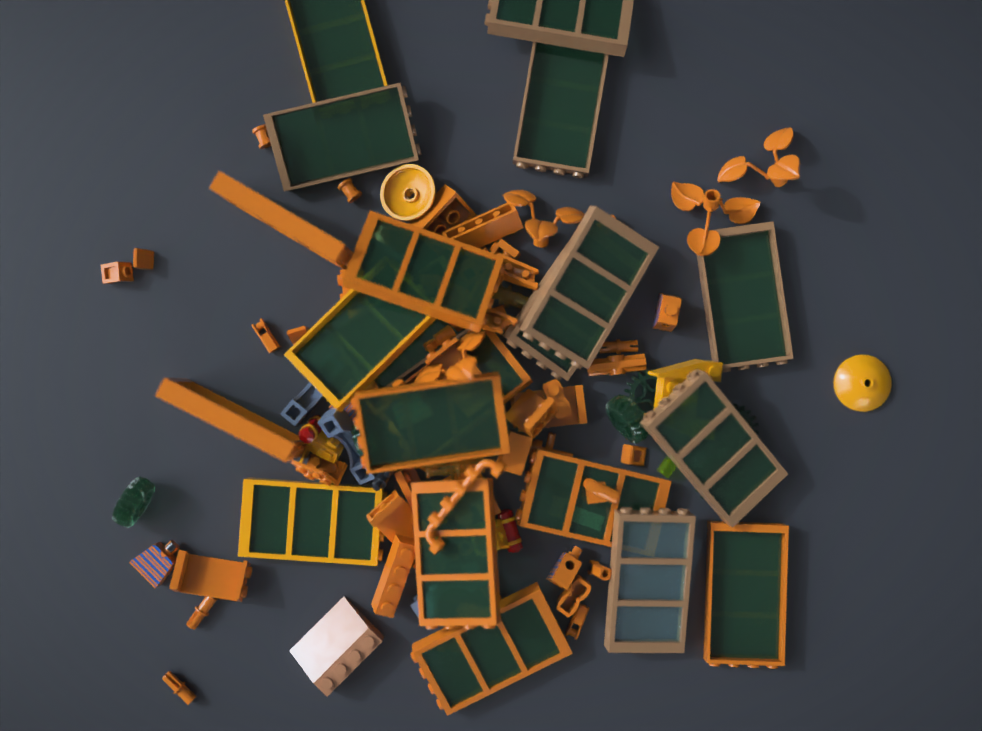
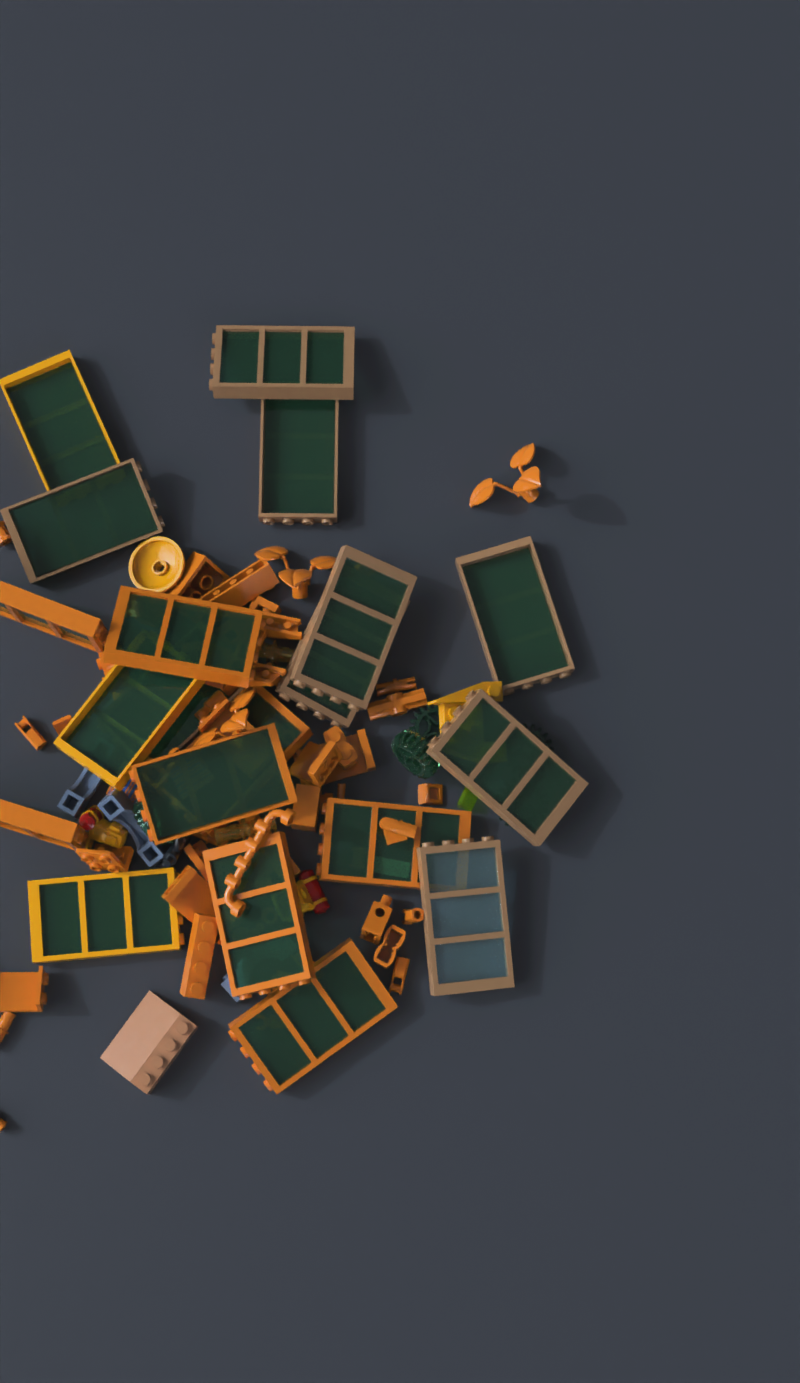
camera: 15 degrees left, 10 degrees down
(349, 190) = (97, 573): orange bush -> none
(667, 312) = (439, 643): orange torso -> none
(688, 195) = (441, 525): orange plant -> none
(746, 594) = (569, 917): clear green window -> none
(850, 383) = (649, 696): light orange dish -> none

